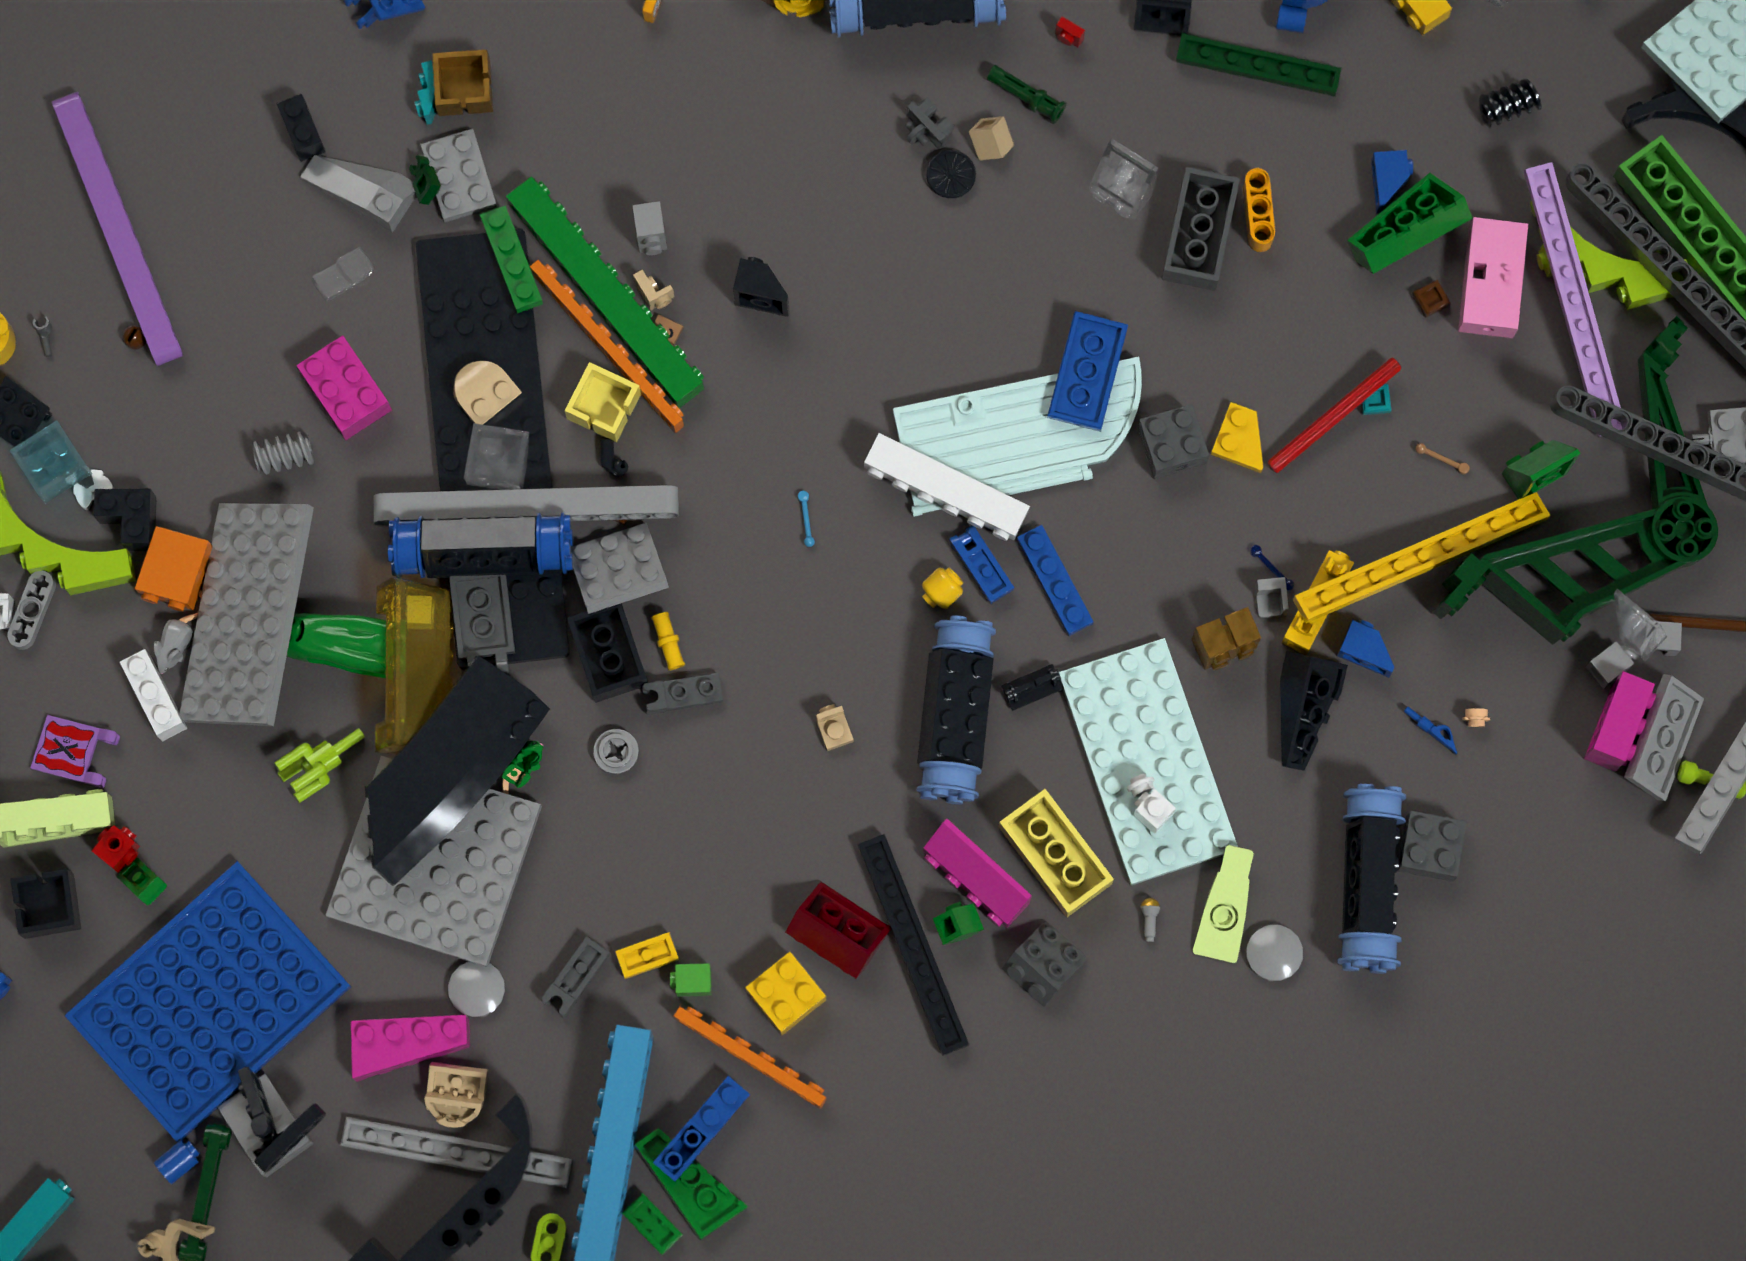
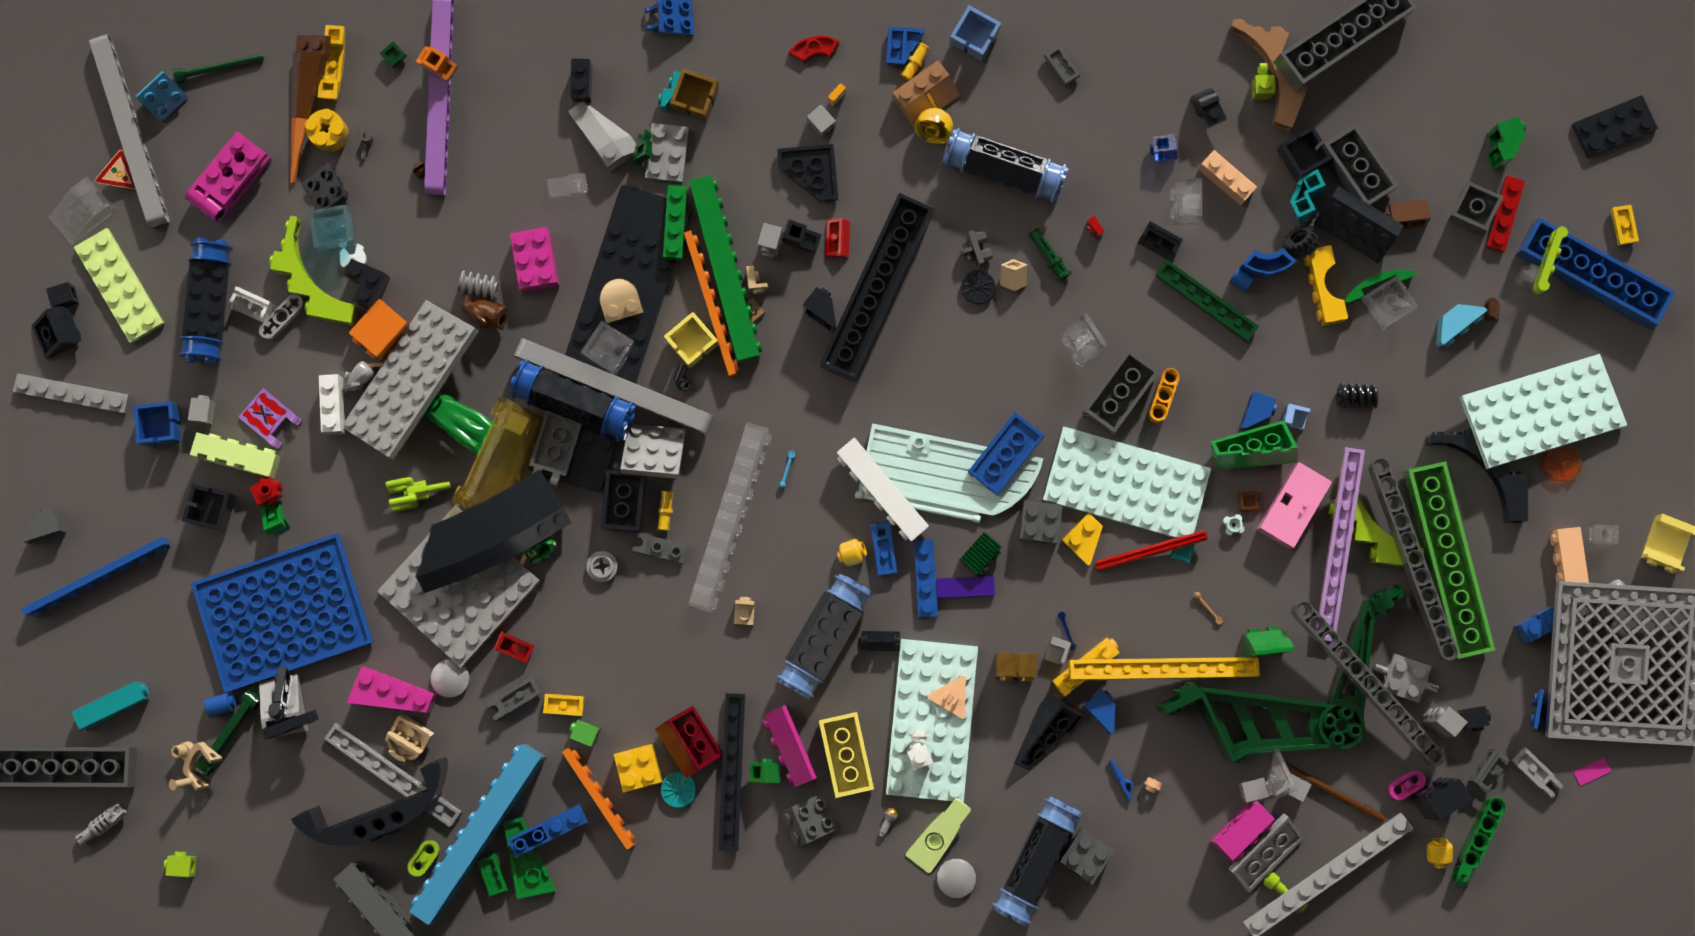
camera: 25 degrees right, 5 degrees up
(30, 201) = (393, 54): none -> dark green plate
(97, 184) = (437, 63): none -> orange brick
(308, 484) = (485, 312): none -> reddish brown animal
(546, 907) = (513, 647): none -> red slope
(646, 46) = (821, 121): none -> light grey panel
(662, 115) = (811, 169): none -> black plate
(684, 207) = (798, 236): none -> black brick
(736, 190) = (837, 238): none -> red slope
(758, 614) = (729, 516): none -> clear brick
(818, 230) = (876, 287): none -> black brick
(851, 1000) = (678, 790): none -> teal wheel
(1112, 516) = (980, 554): none -> dark green brick
(1112, 568) = (965, 587): none -> dark purple tile
(1160, 717) = (951, 696): none -> light nougat piece
(1262, 344) = (1126, 484): none -> light aqua plate
(1429, 329) = (1238, 524): none -> light aqua plate
(1442, 162) = (1295, 416): none -> light blue panel

